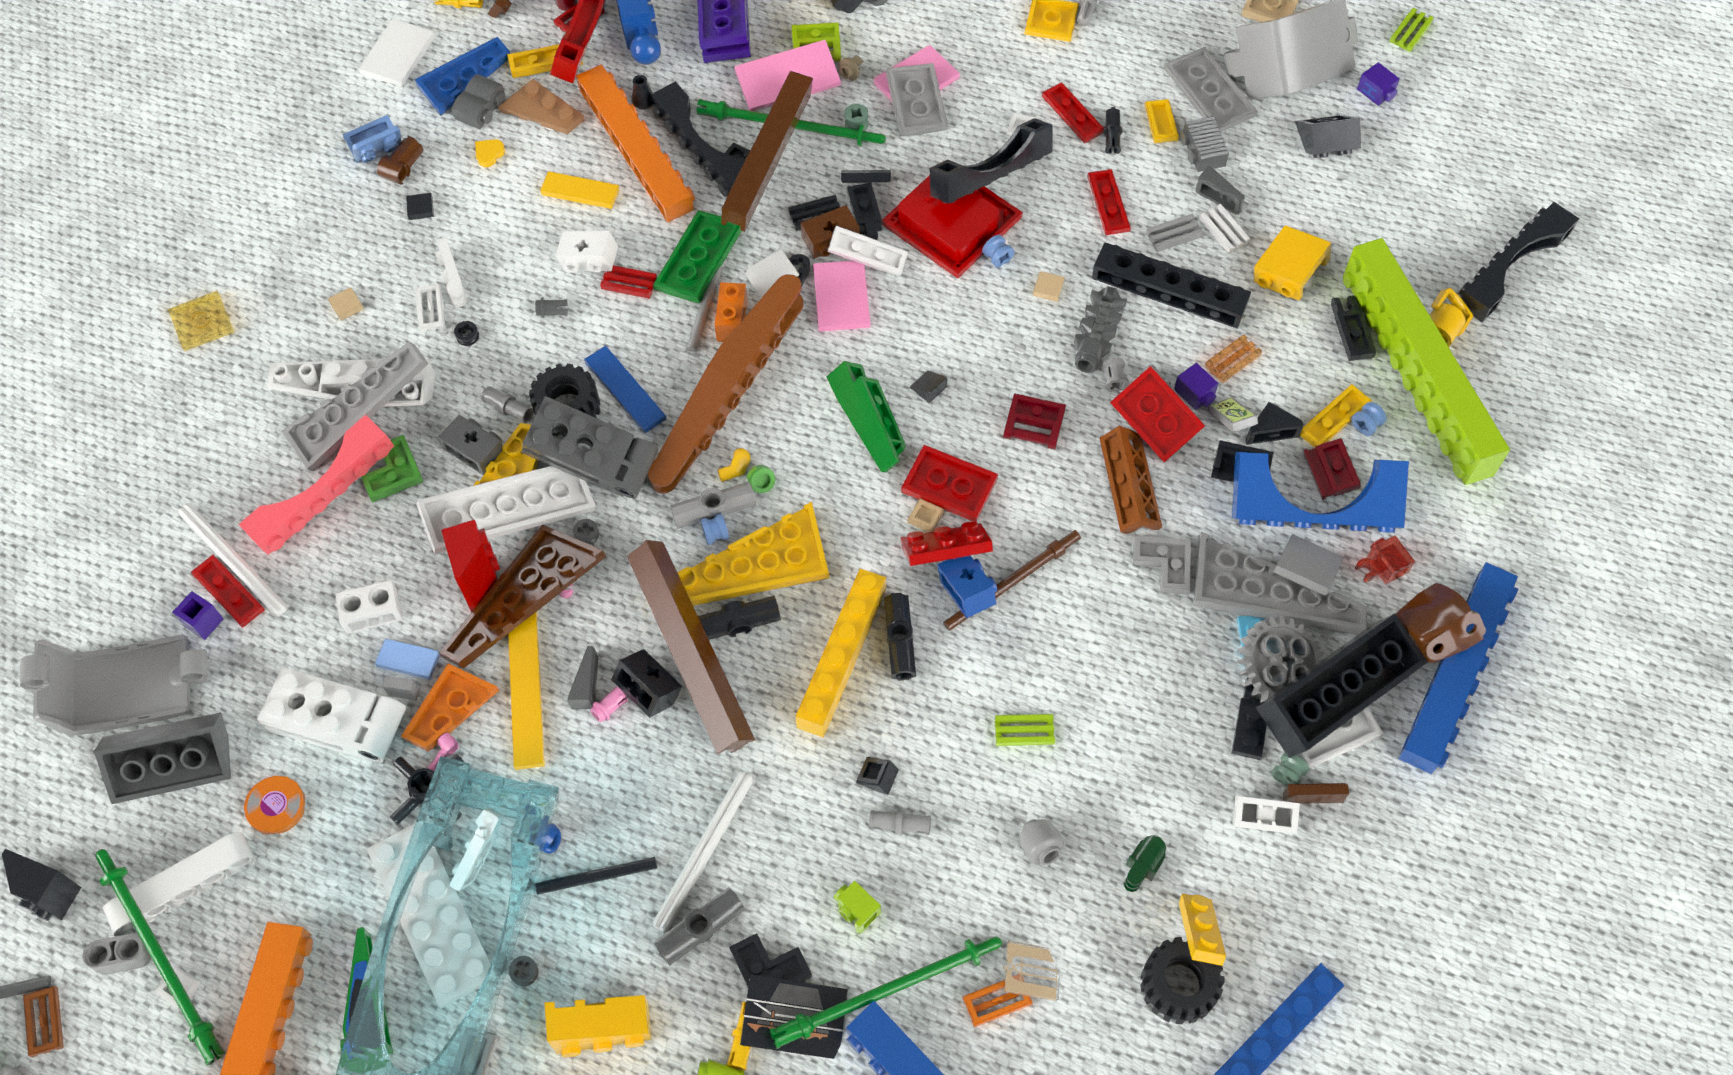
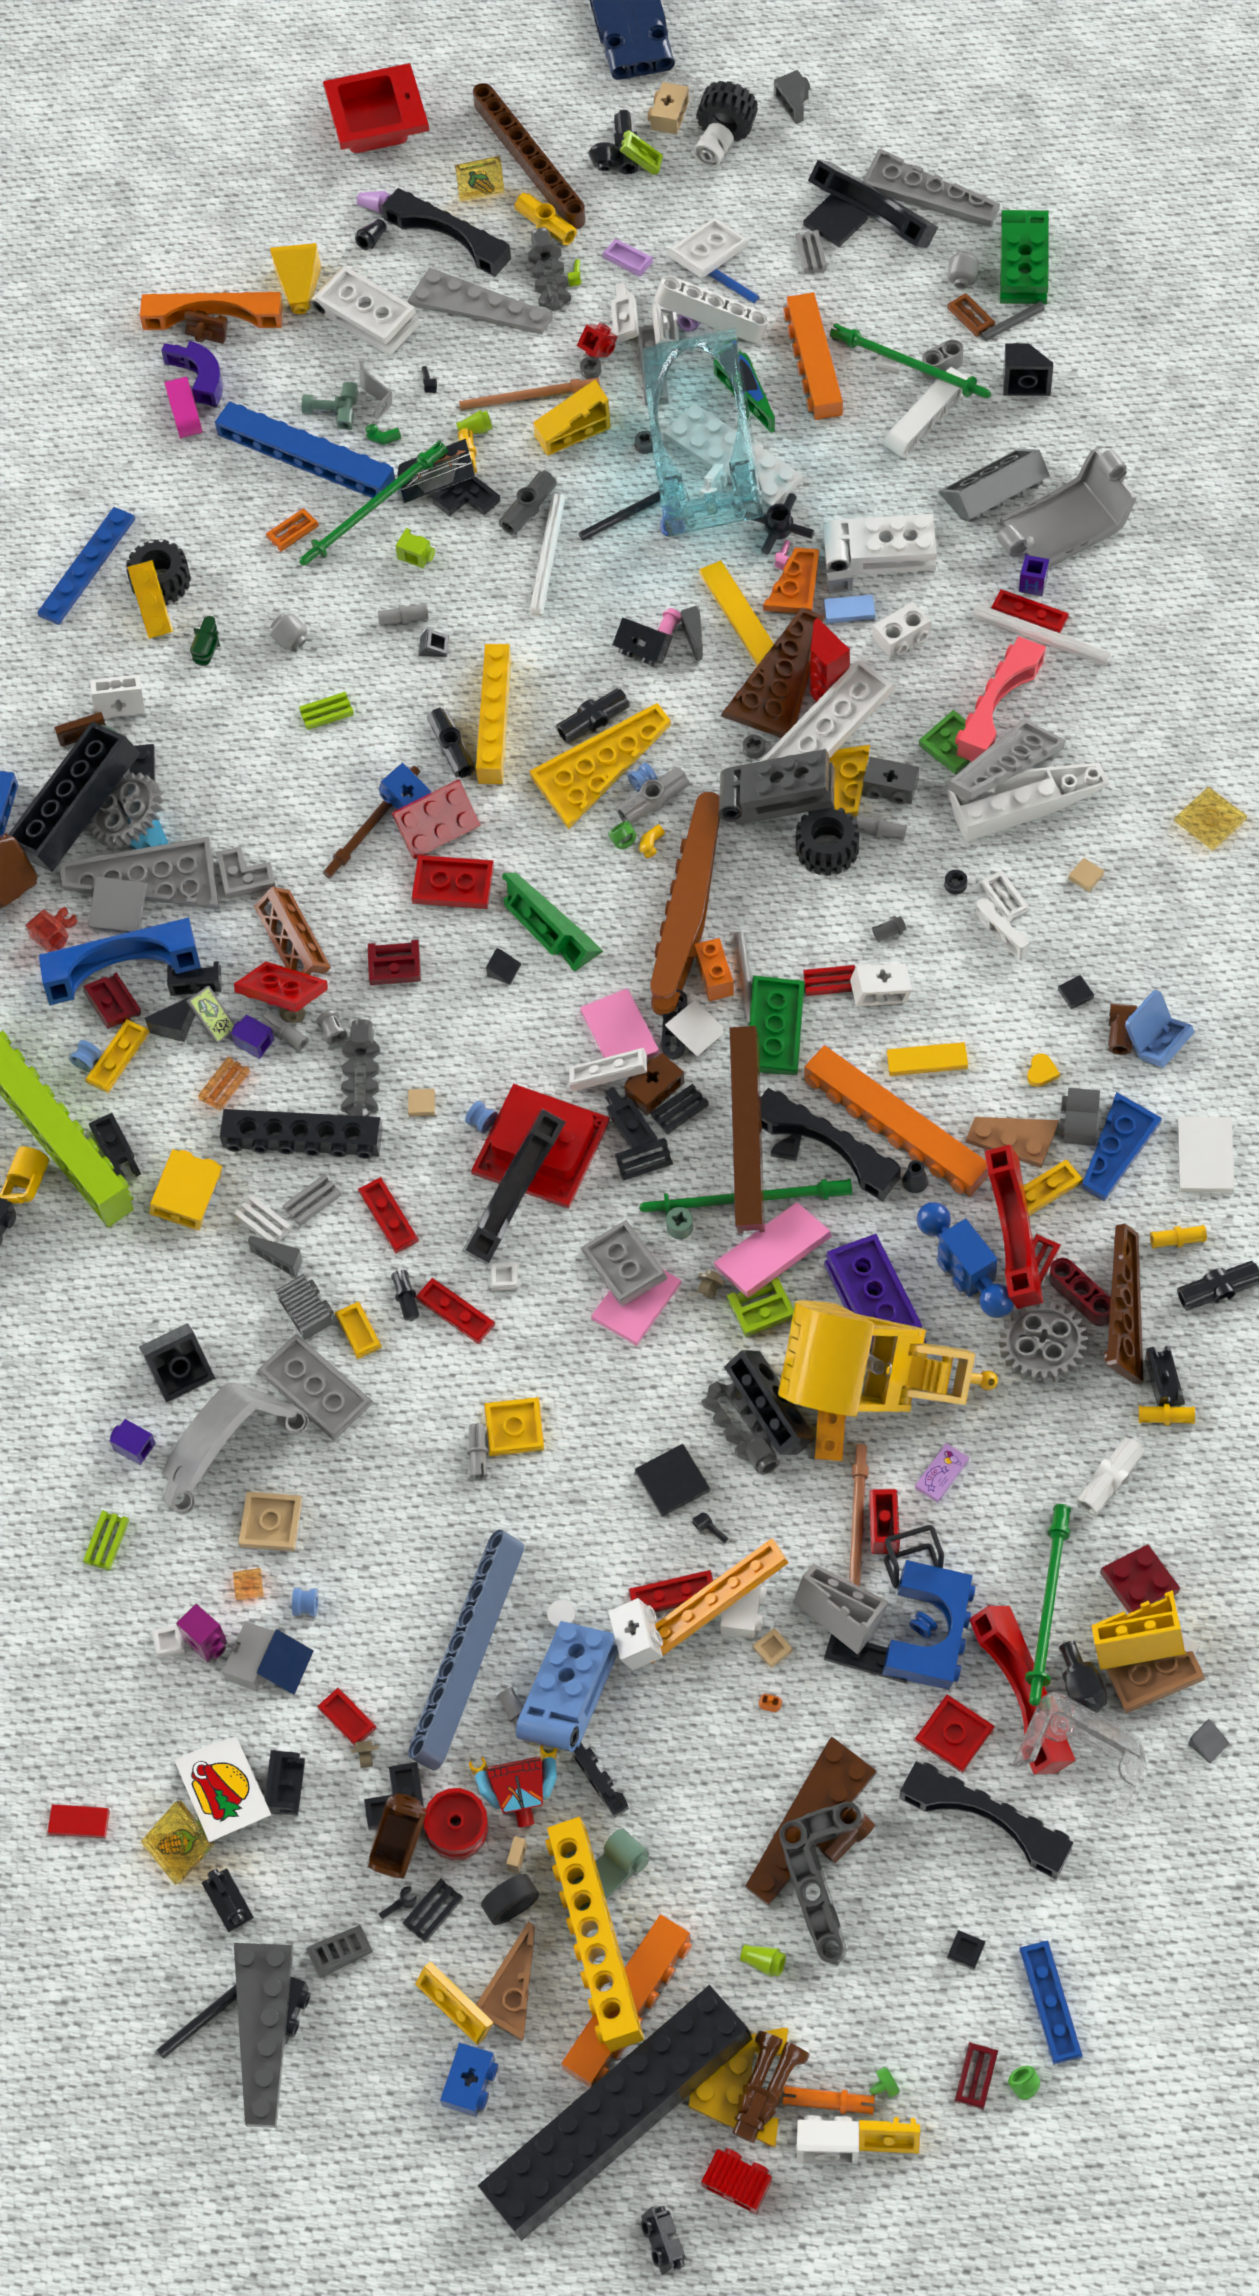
camera: 165 degrees right, 0 degrees up
(274, 805) = (891, 483): orange tile -> none
(625, 389) = (782, 878): blue tile -> none
(690, 647) = (617, 670): tile -> none
(925, 515) = (465, 848): tan tile -> none
(1032, 970) = (271, 551): clear piece -> none

